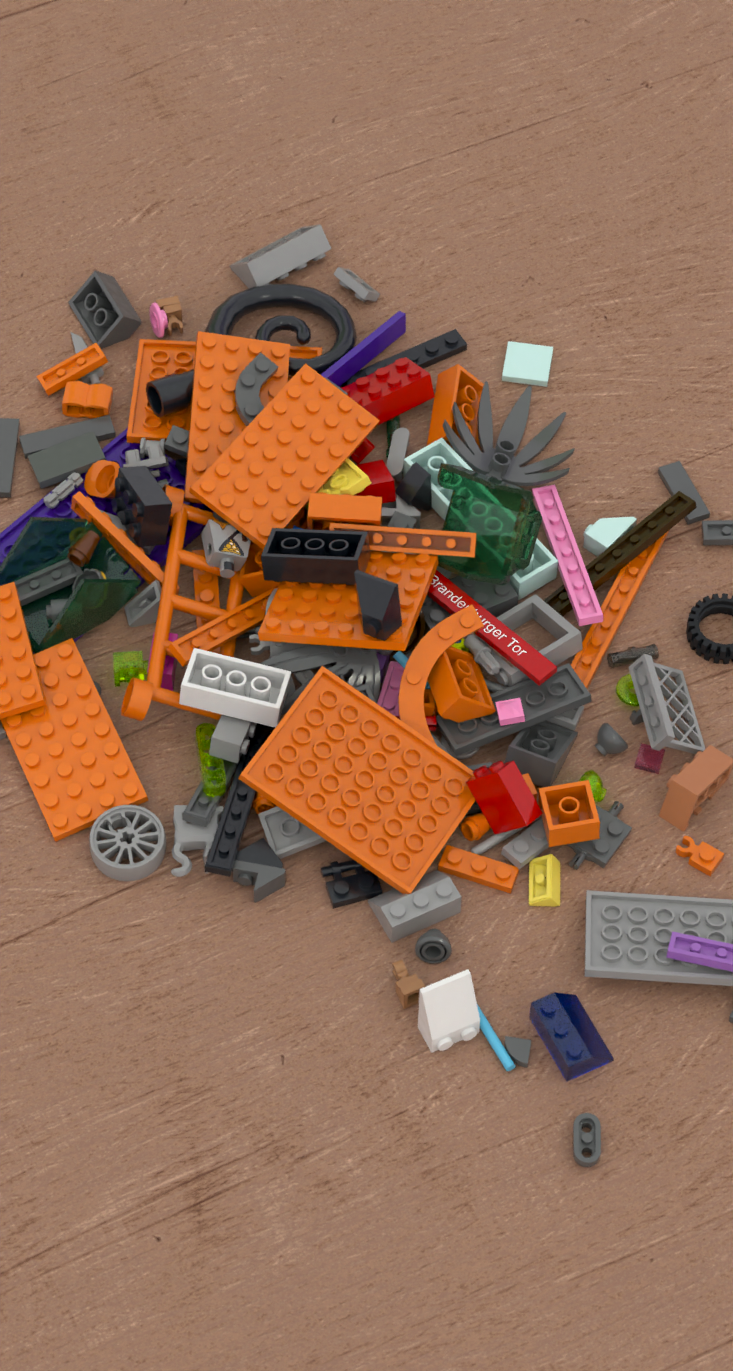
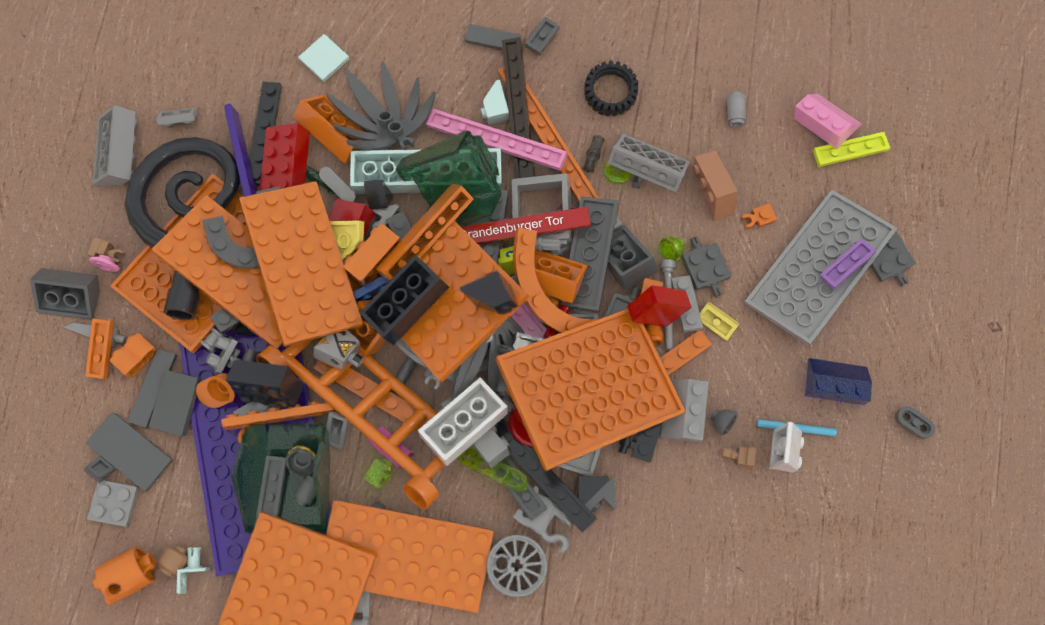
camera: 55 degrees left, 20 degrees up
(63, 490) = (201, 423): light grey axle -> none
(83, 549) = (269, 446): reddish brown cone -> none
(222, 629) = (403, 396): orange plate -> none
(510, 711) = (596, 257): bright pink tile -> none
(518, 1050) = (826, 419): dark grey tile -> none
(569, 813) = (695, 274): orange brick -> none
(609, 741) = (647, 211): dark grey brick -> none
(649, 759) = (671, 198): clear pink tile -> none

